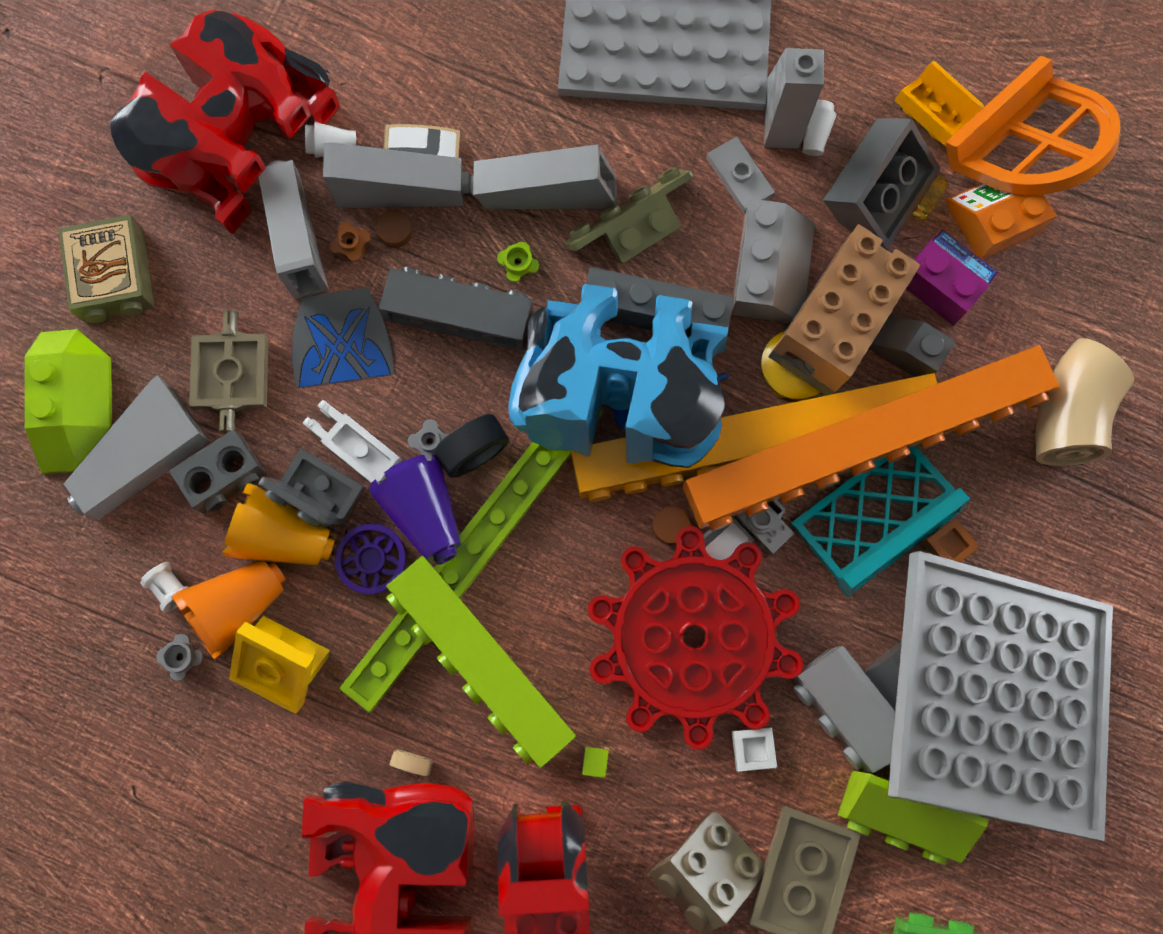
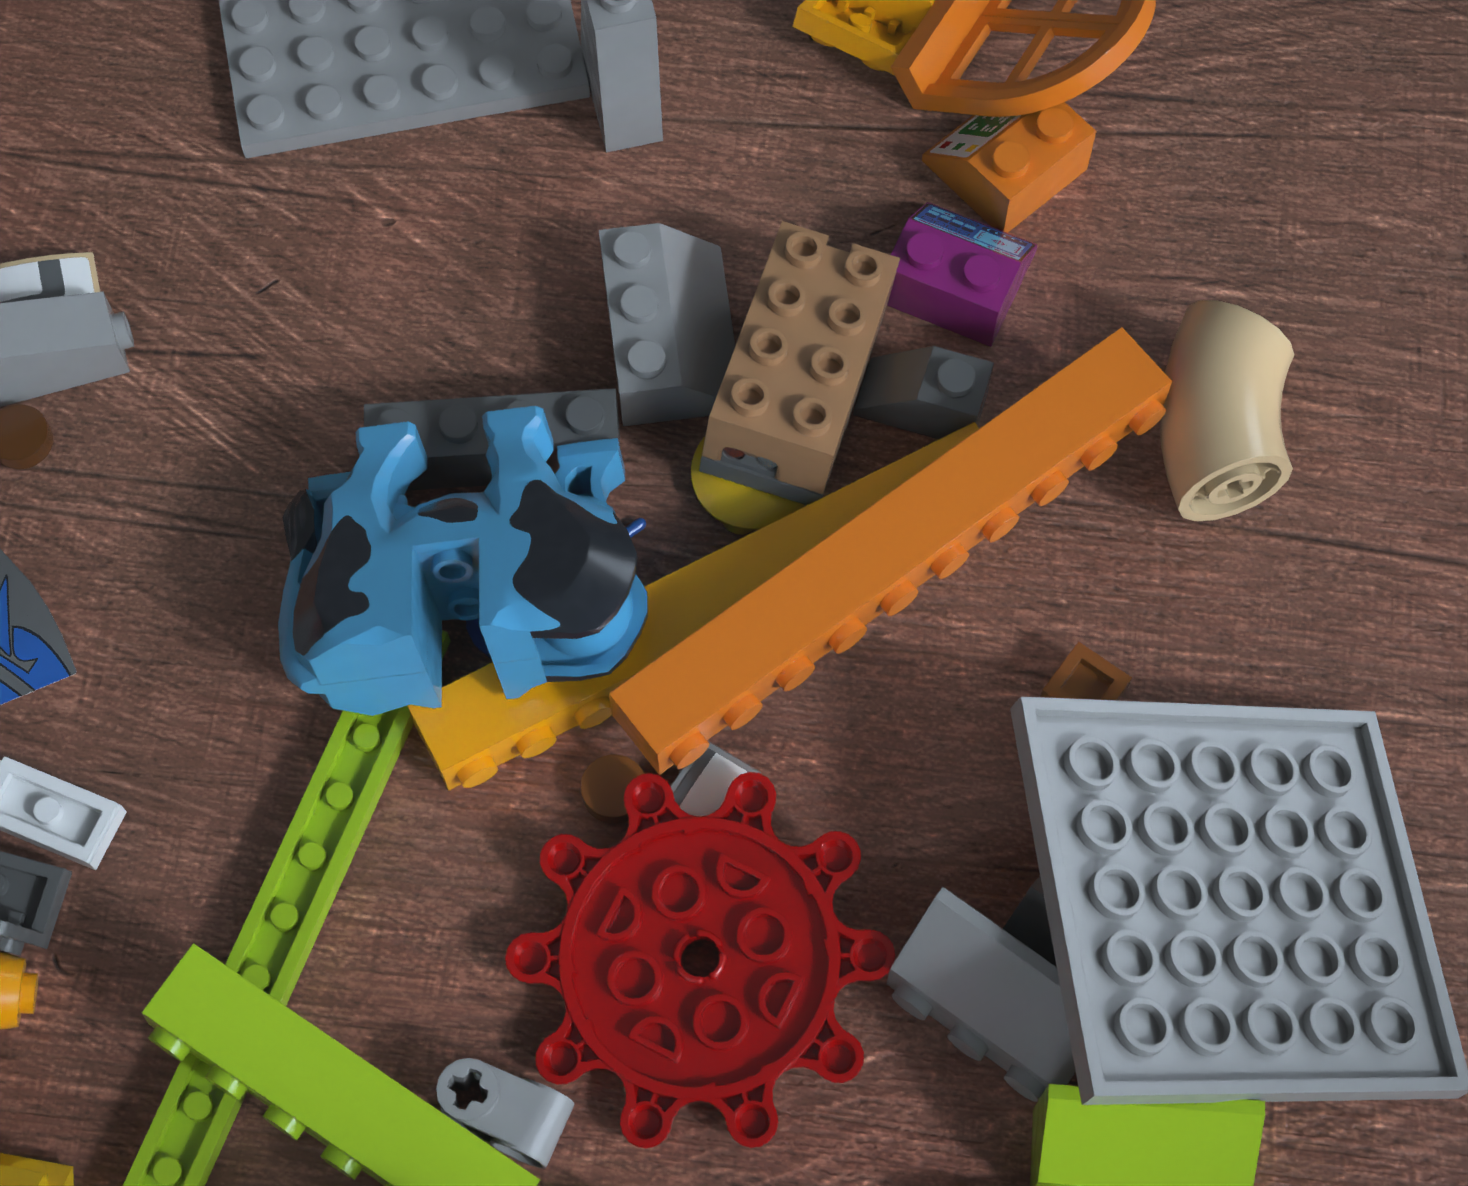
camera: 15 degrees left, 10 degrees down
(369, 558) = (105, 990): dark purple wheel -> none
(419, 440) = (170, 782): light grey plate -> none
(420, 507) = (170, 868): dark purple cone -> none
(456, 308) = (155, 535): dark grey brick -> none
(471, 445) = (236, 747): black tyre -> none
(517, 251) = (235, 419): lime plate -> none
(546, 180) = (258, 291): light grey slope -> none
(571, 694) = (517, 1113): none -> light grey piece
(637, 222) = (427, 322): olive bracket -> none
(739, 173) = (574, 200): light grey plate -> none
(754, 749) = (854, 1118): white plate -> none
(767, 528) = (773, 744): light grey piece -> none
(819, 128) = (682, 97): white cone -> none
(883, 179) = (811, 149): dark grey slope -> none
(892, 545) = (988, 722): teal fence -> none
(931, 198) = (897, 147): clear yellow tile -> none

